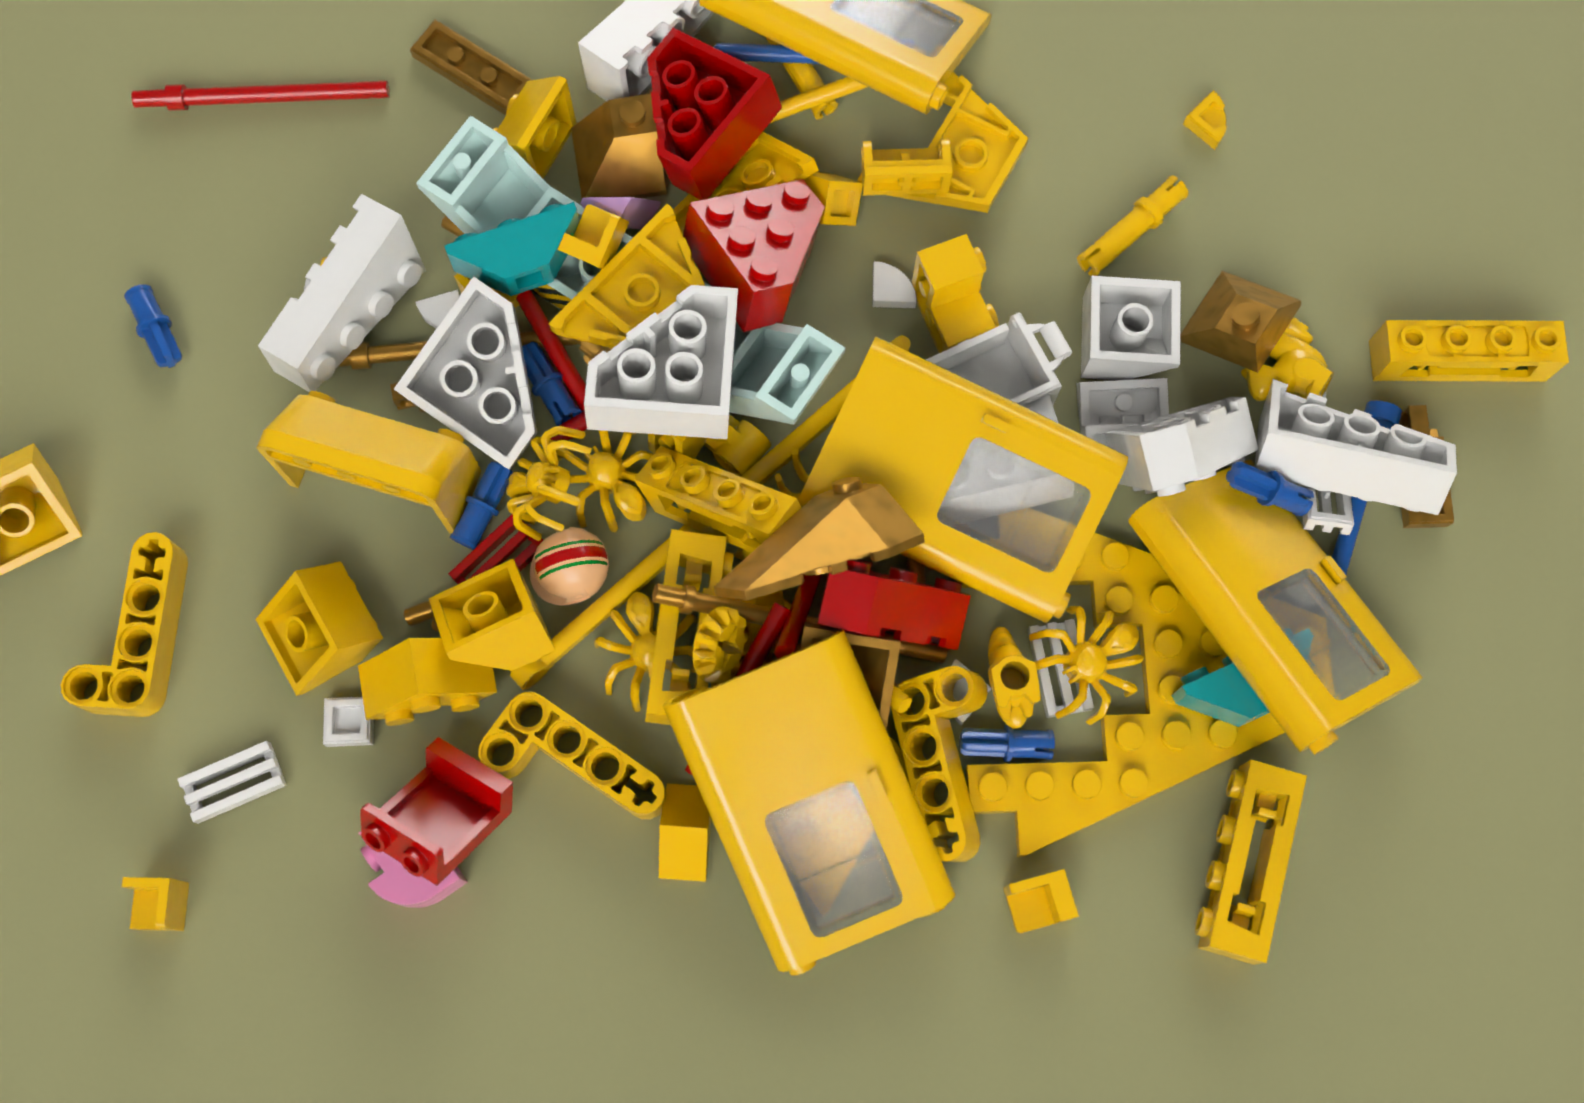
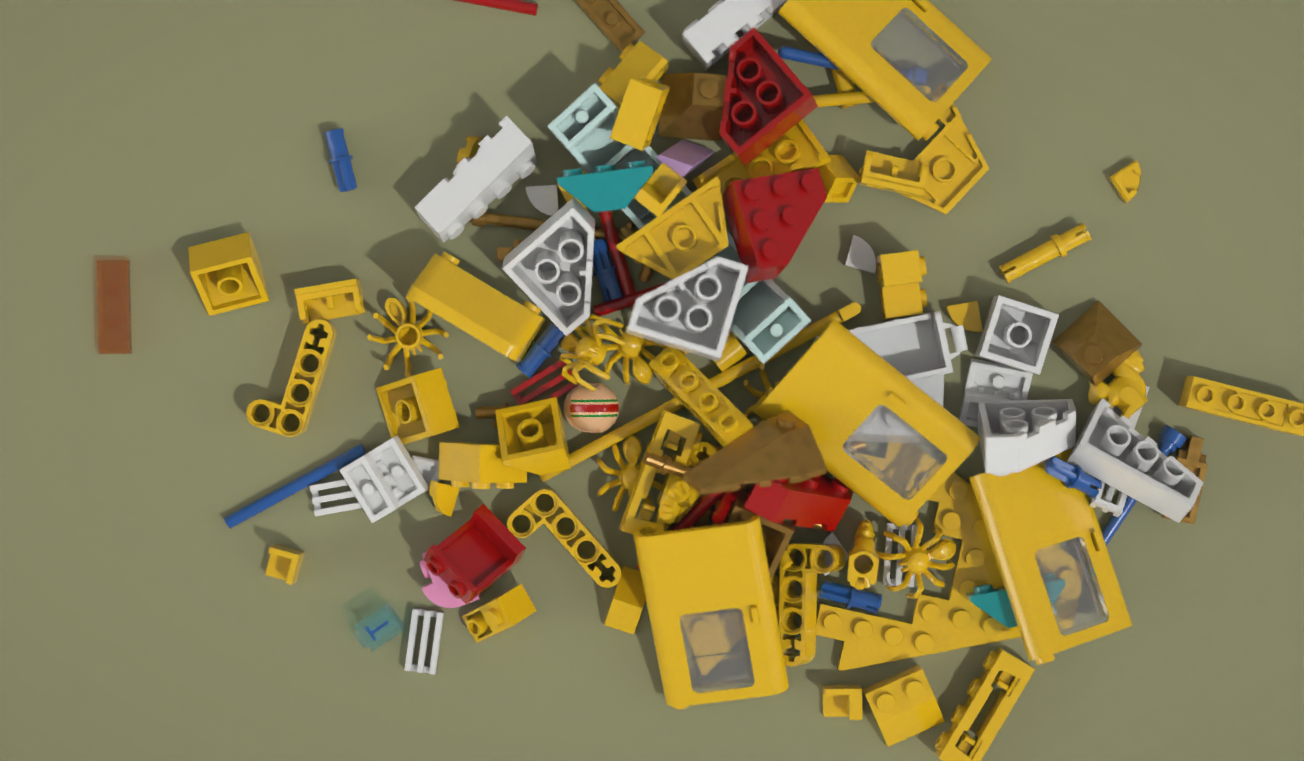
camera: 20 degrees right, 15 degrees up
(156, 788) = (295, 486): none -> blue piece
(170, 506) = (330, 300): none -> yellow hinge
(284, 528) = (408, 334): none -> yellow animal
(286, 739) = (384, 479): none -> white slope
(316, 964) = (379, 627): none -> clear light blue brick
(373, 975) = (420, 667): none -> white tile
(380, 745) = (443, 497): none -> yellow tile
(495, 896) = (499, 613): none -> yellow slope
(542, 144) = (639, 112): none -> yellow hinge
(1064, 323) = (966, 315): none -> yellow tile
(1132, 884) = (903, 705): none -> yellow slope

